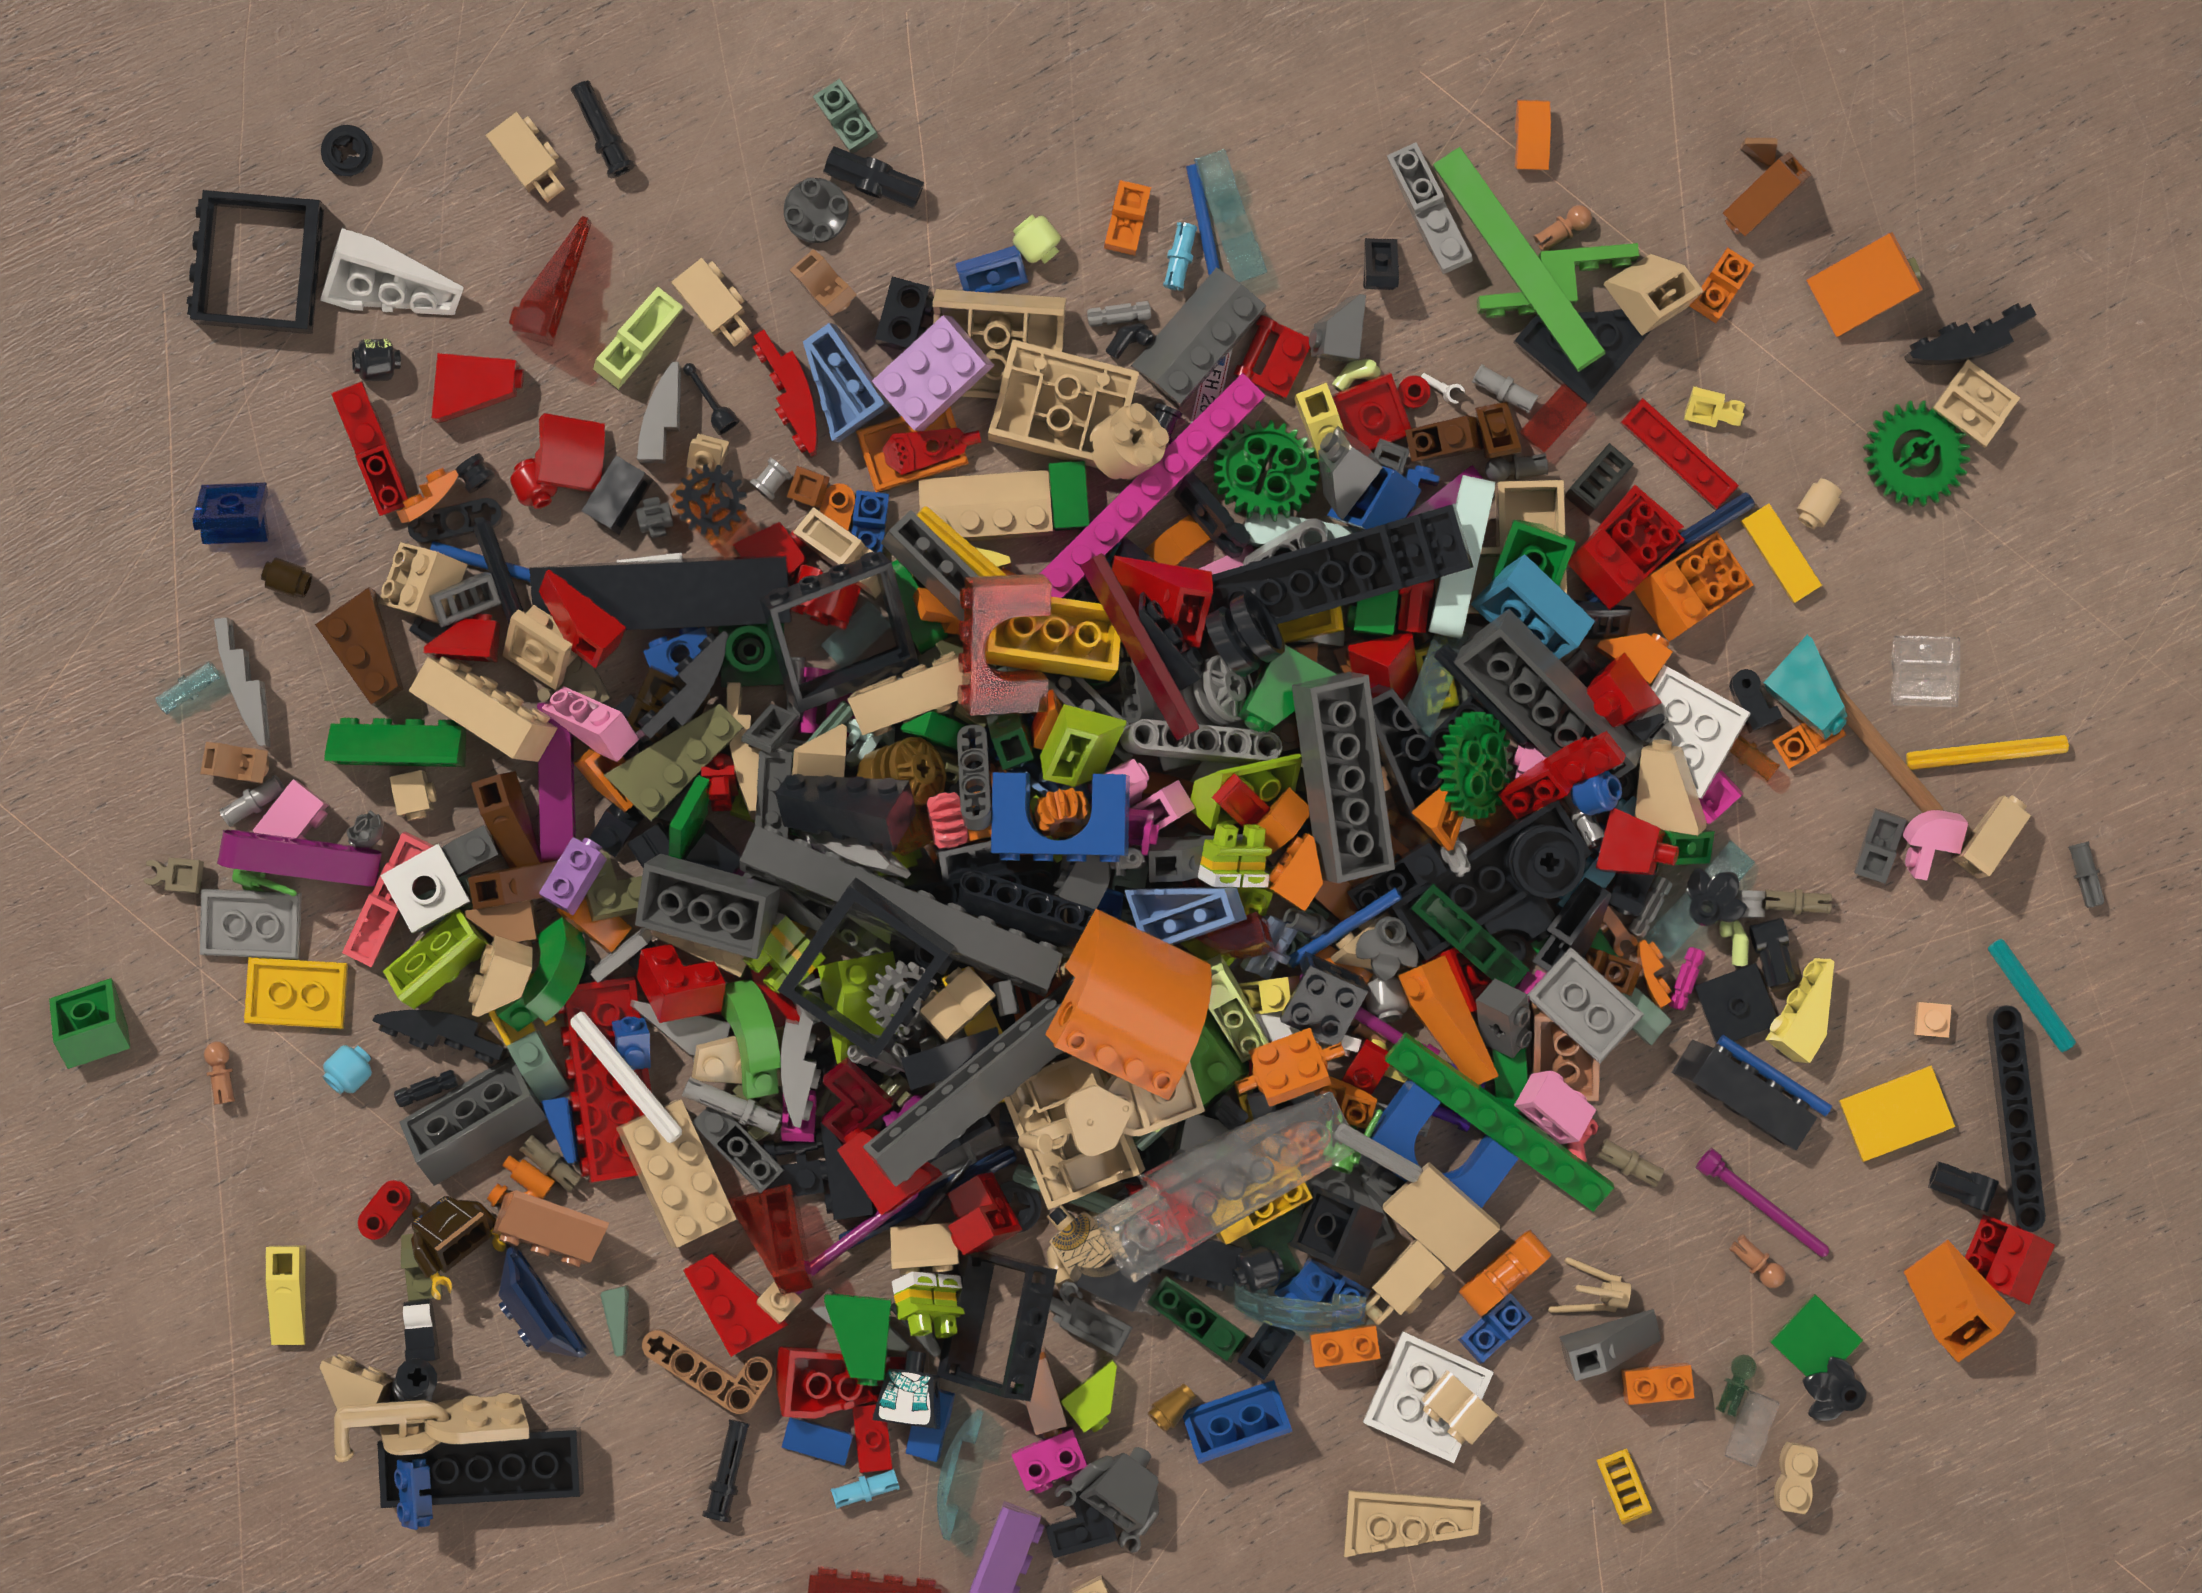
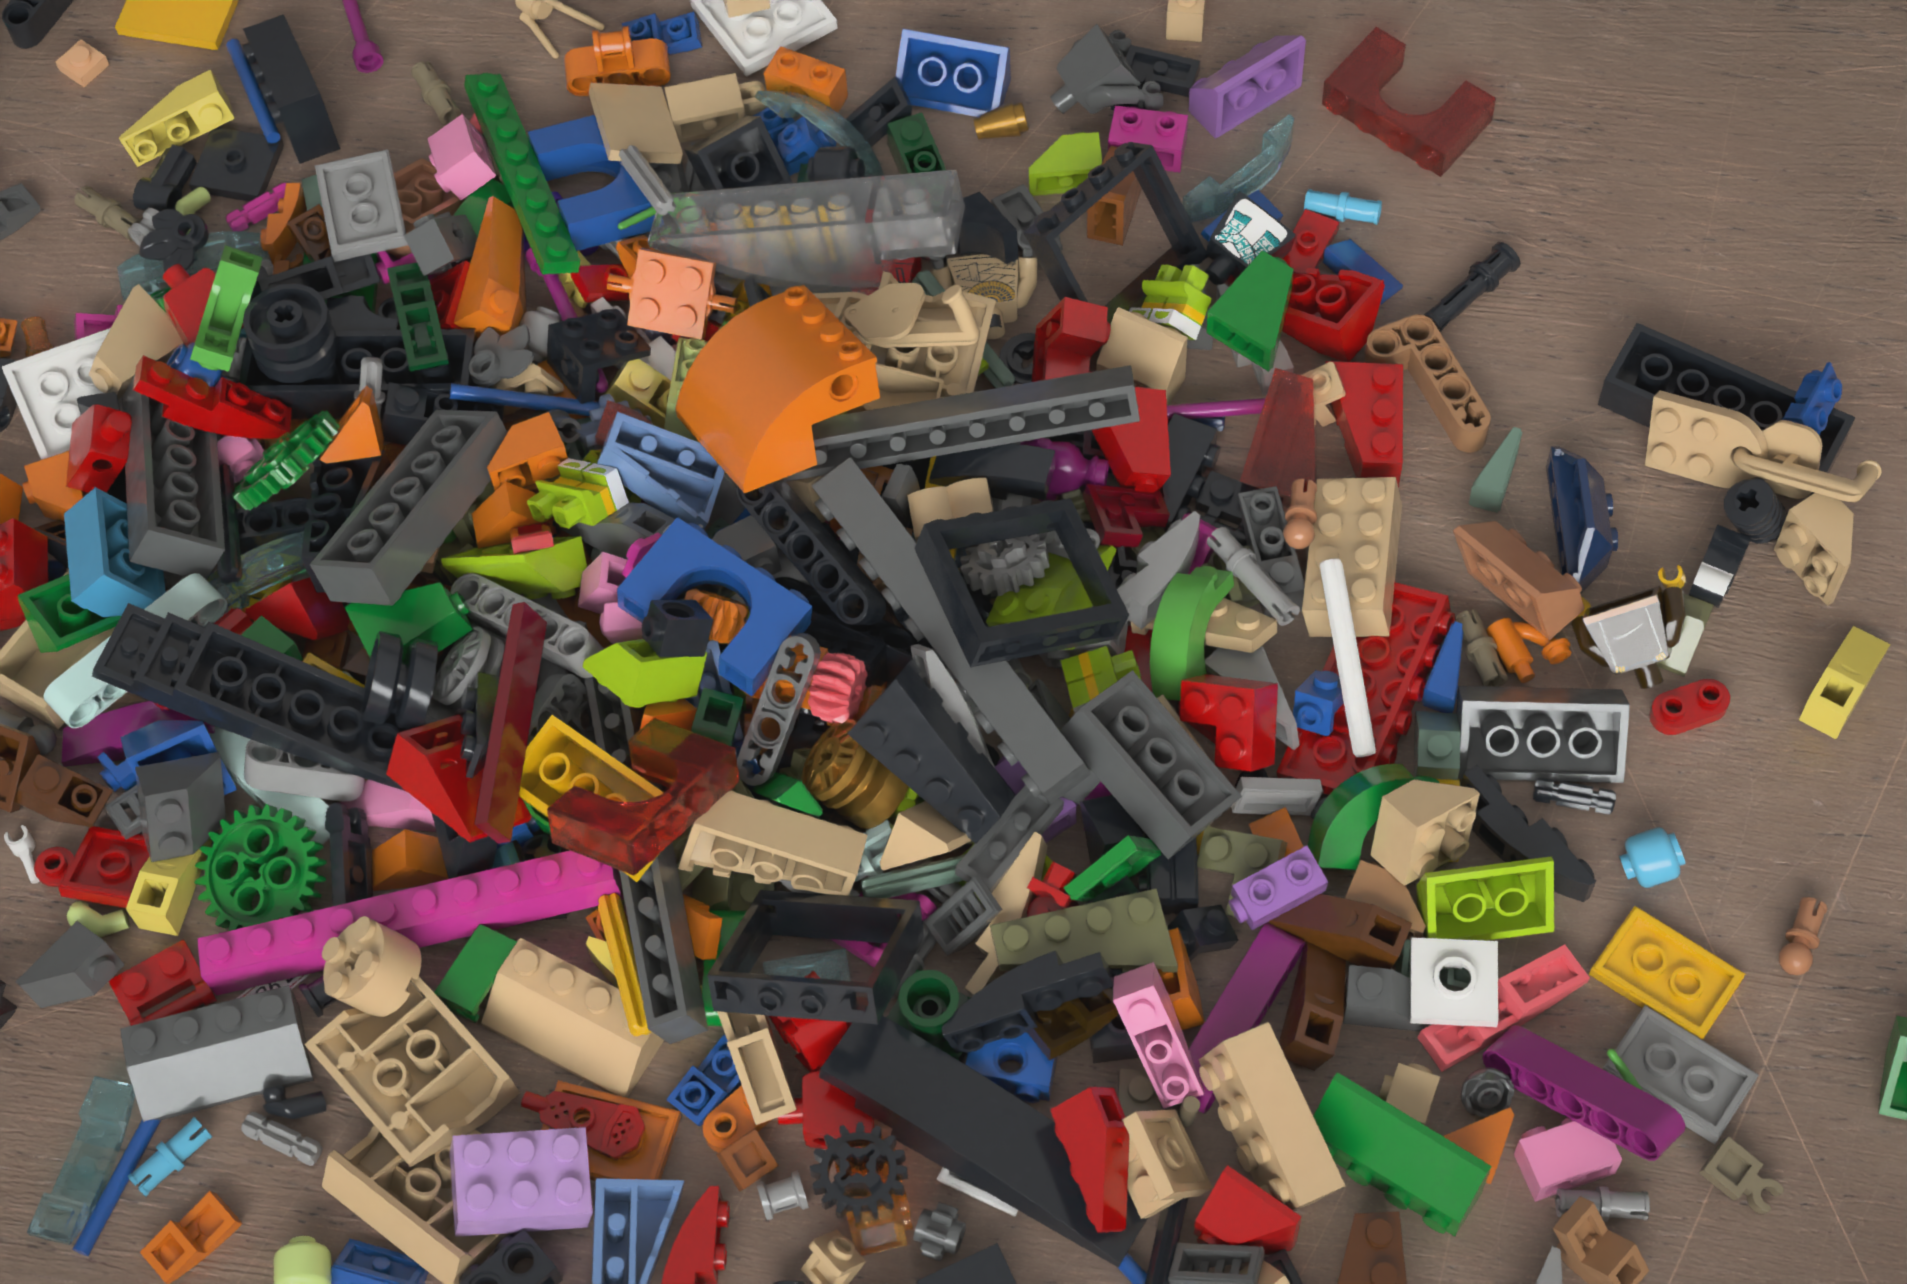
camera: 140 degrees left, 25 degrees down
(350, 788) = (1485, 1138): none -> orange slope
(718, 1159) = (1301, 515): none -> nougat pin
(1067, 774) = (677, 628): none -> black brick
(1601, 839) = (225, 309): none -> bright green arch

